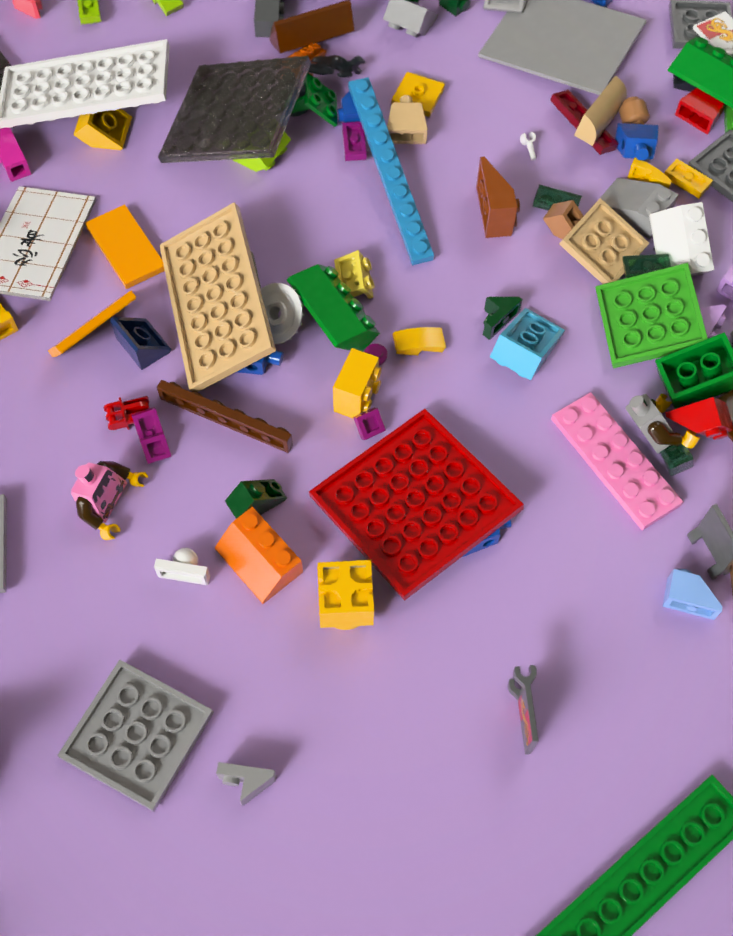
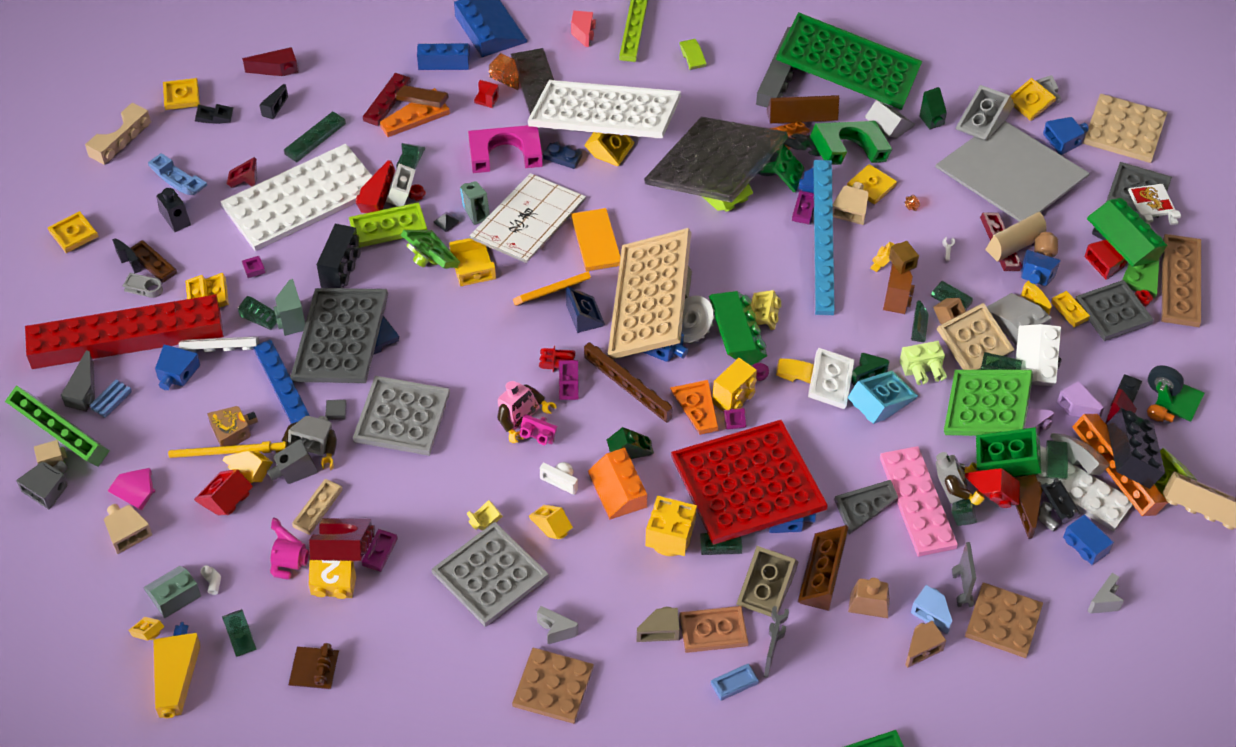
camera: 20 degrees right, 10 degrees down
(51, 154) = (562, 155): none -> dark blue plate
(103, 656) = (484, 516): none -> light yellow bracket
(134, 513) = (538, 429): none -> dark pink hips
(192, 633) = (552, 521): none -> yellow slope
(269, 865) = (553, 685): none -> medium nougat plate
(319, 420) = (698, 405): none -> orange wing
(356, 53) = (866, 134): none -> green arch
(379, 731) = (659, 626): none -> dark tan slope
(397, 604) = (731, 546): none -> clear green plate
(442, 711) = (713, 629): none -> nougat tile
(462, 339) = (831, 378): none -> white plate
(467, 175) = (882, 257): none -> yellow plate
(471, 103) = (912, 202): none -> clear orange plate
(485, 627) = (767, 581): none -> dark tan slope
(493, 776) = (734, 682): none -> medium blue tile
(497, 168) = (903, 257): none -> pearl gold brick
(532, 242) = (920, 323): none -> clear green slope
(545, 584) = (823, 568): none -> reddish brown slope
(554, 284) = (921, 359): none -> yellowish green brick
(557, 485) = (865, 503): none -> dark grey wing
(617, 605) = (870, 598): none -> medium nougat torso
(697, 643) = (925, 643): none -> medium nougat slope

